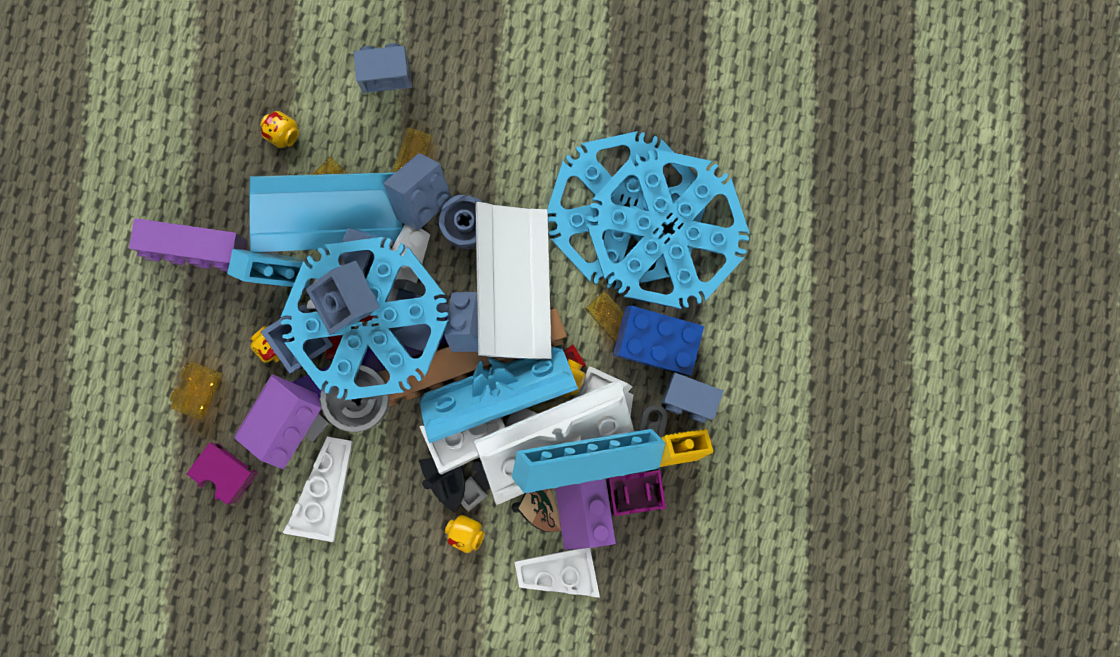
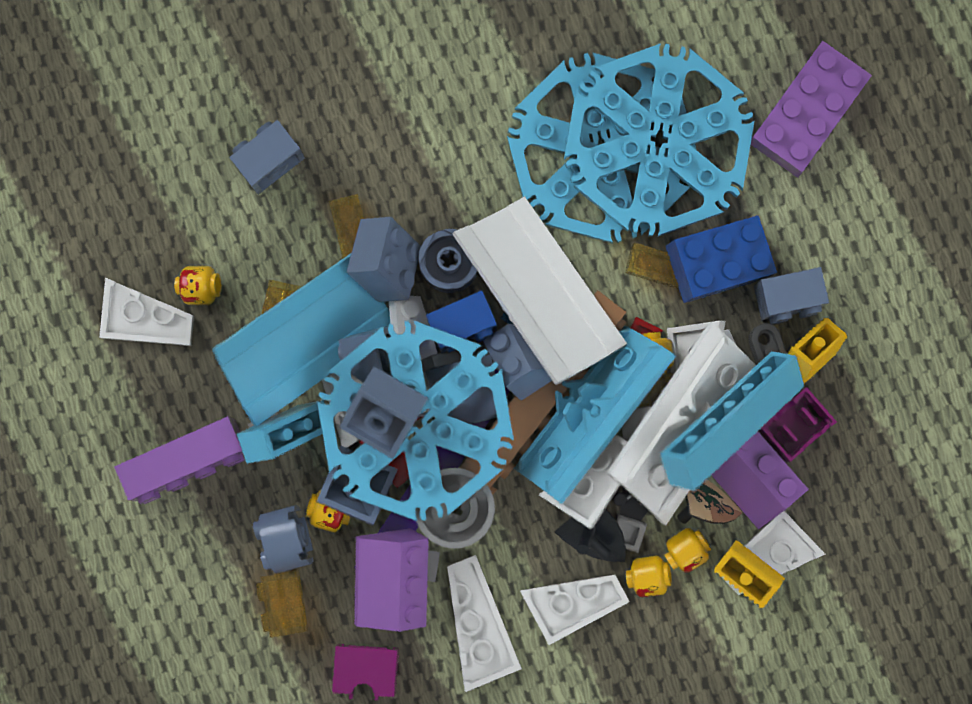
camera: 30 degrees left, 0 degrees up
(223, 345) = (283, 539): none -> sand blue brick
(225, 127) = (140, 318): none -> white wing
(398, 520) = (574, 604): none -> white wing
(448, 269) = (465, 318): none -> blue brick
(503, 532) = (687, 550): none -> yellow head
(534, 577) = (749, 574): none -> yellow brick
(790, 274) = (810, 109): none -> medium lavender brick

